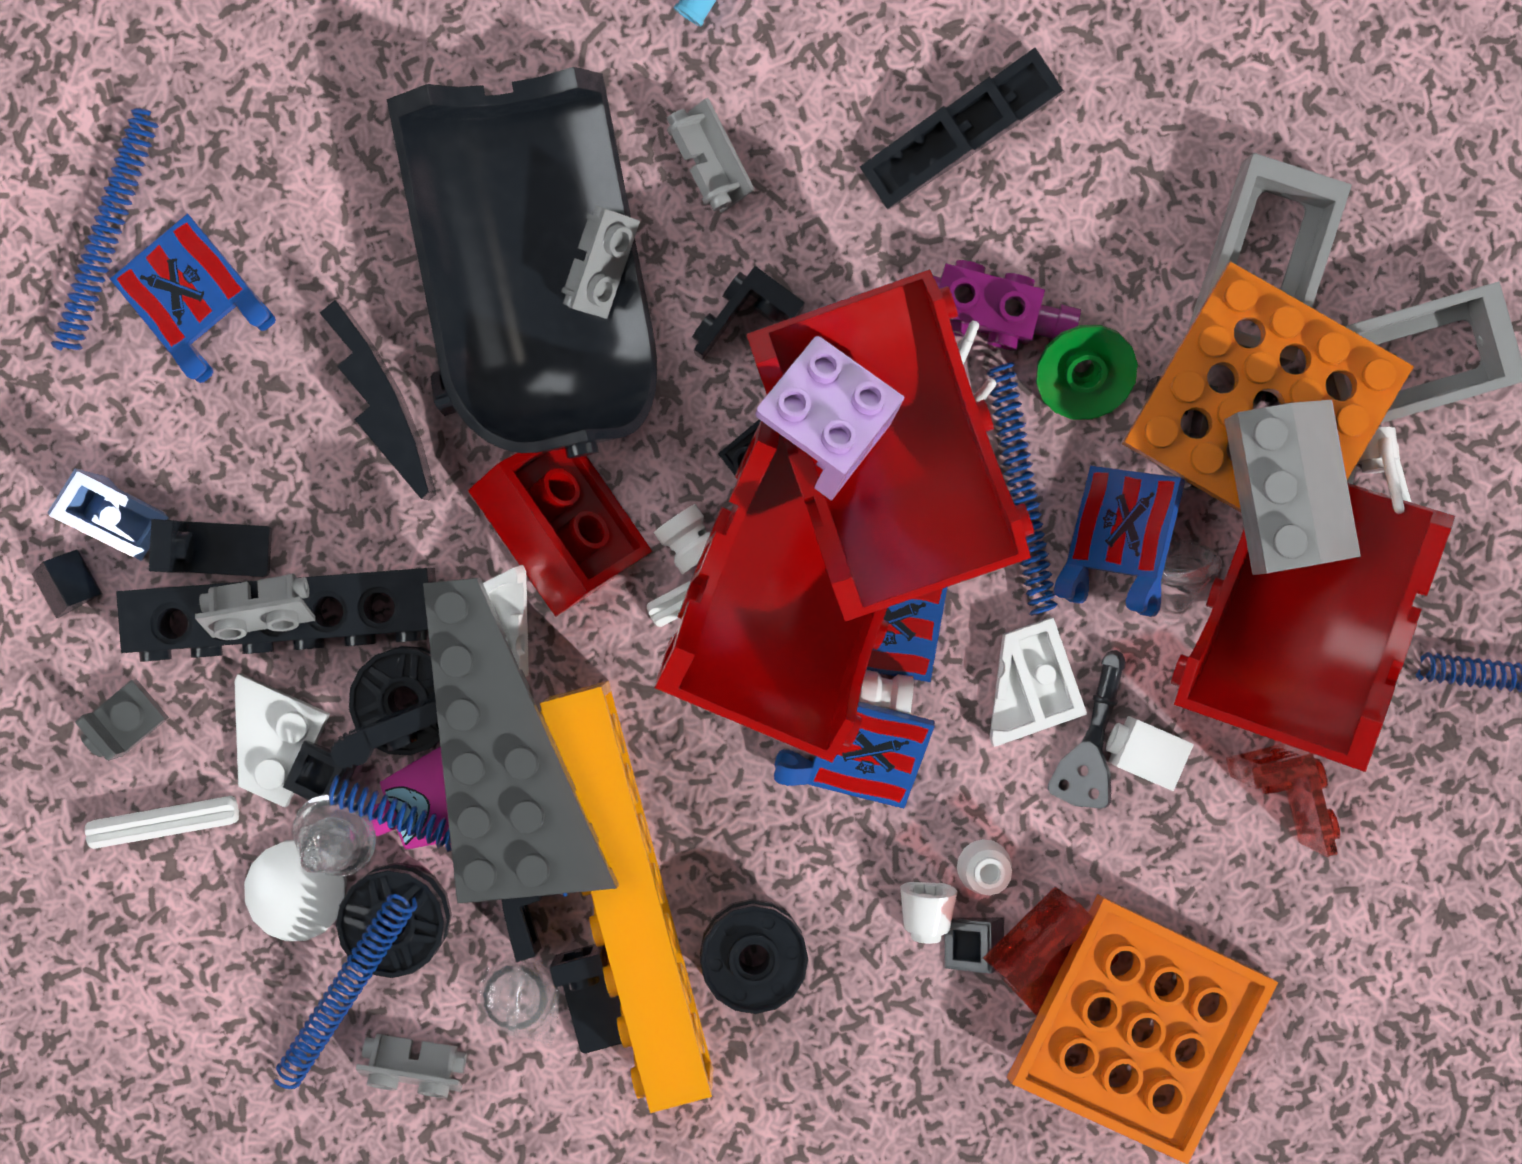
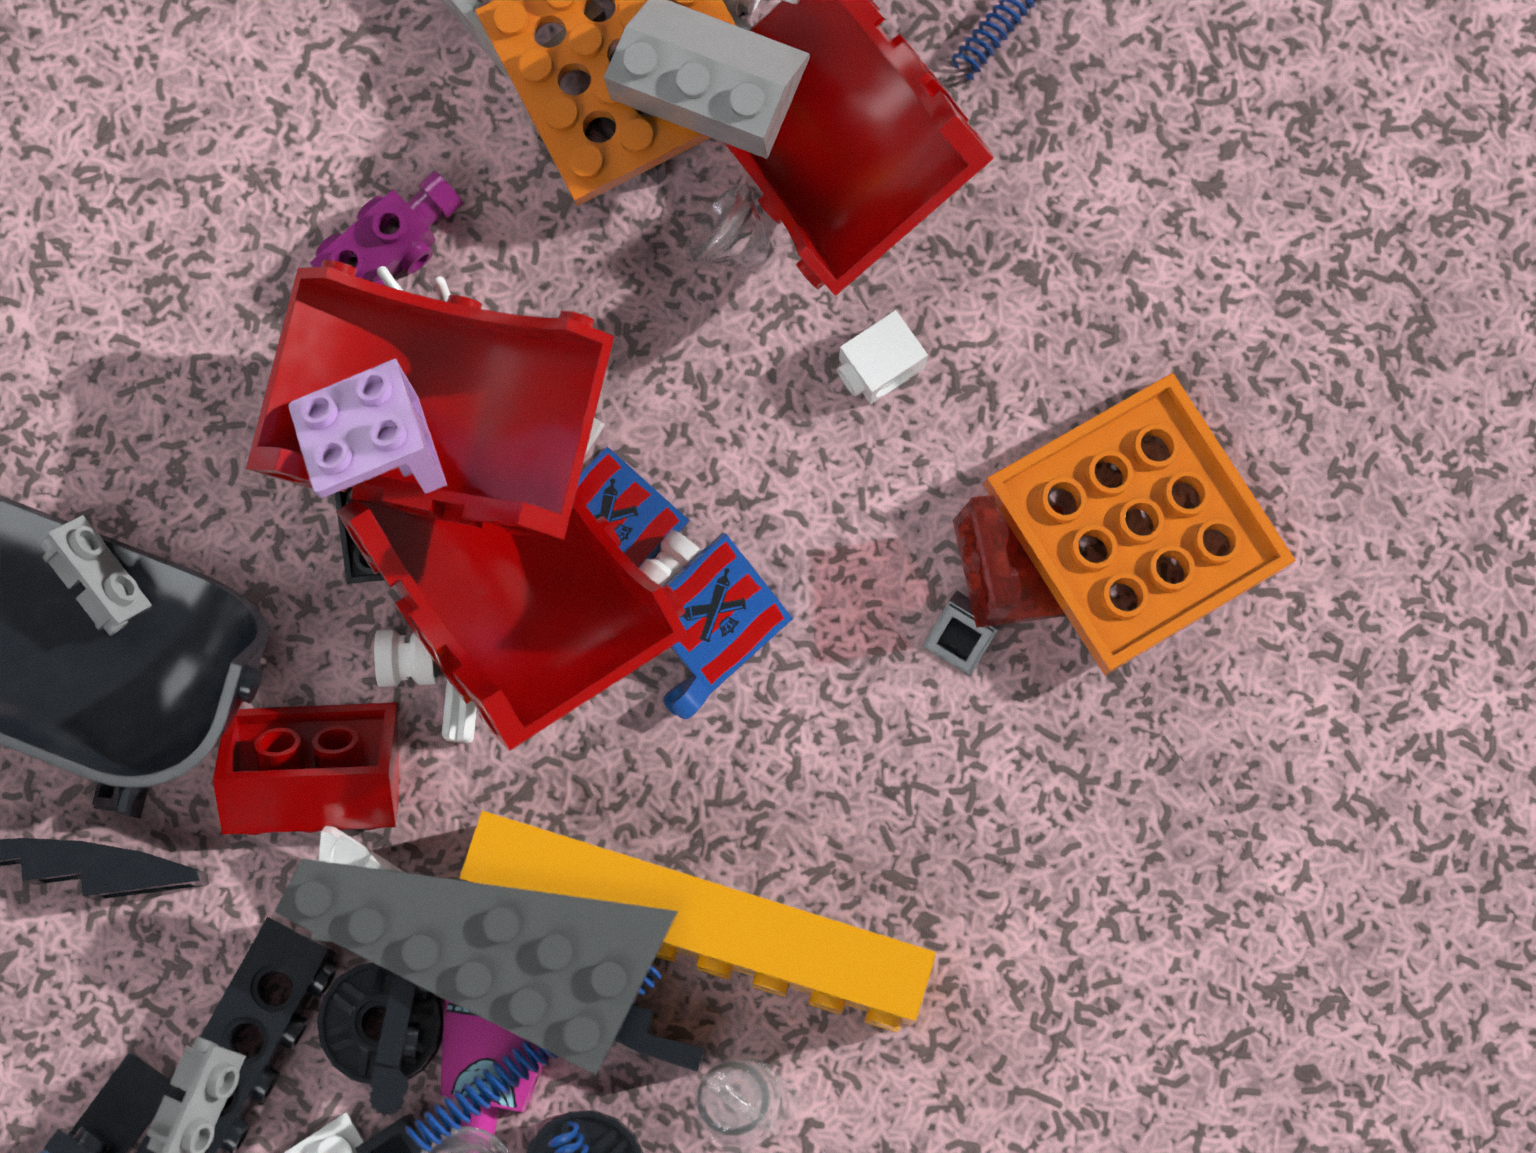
camera: 55 degrees left, 10 degrees down
(587, 997) = (784, 1028): black bracket -> none
(717, 166) = (68, 412): light grey hinge -> none
(761, 986) = (847, 810): black wheel -> none
(772, 302) = (216, 444): black bracket -> none
(927, 910) = (902, 654): white hat -> none
(962, 128) = (199, 176): black slope -> none
(985, 867) = (897, 578): white hat -> none
(1028, 485) = (613, 357): blue piece -> none
(1033, 684) = (750, 424): white wing -> none
(1090, 751) = (846, 411): piece -> none
(1097, 389) = (517, 196): green dish -> none
(1123, 530) = (659, 253): blue flag -> none
(1303, 778) = (990, 232): clear red bracket -> none

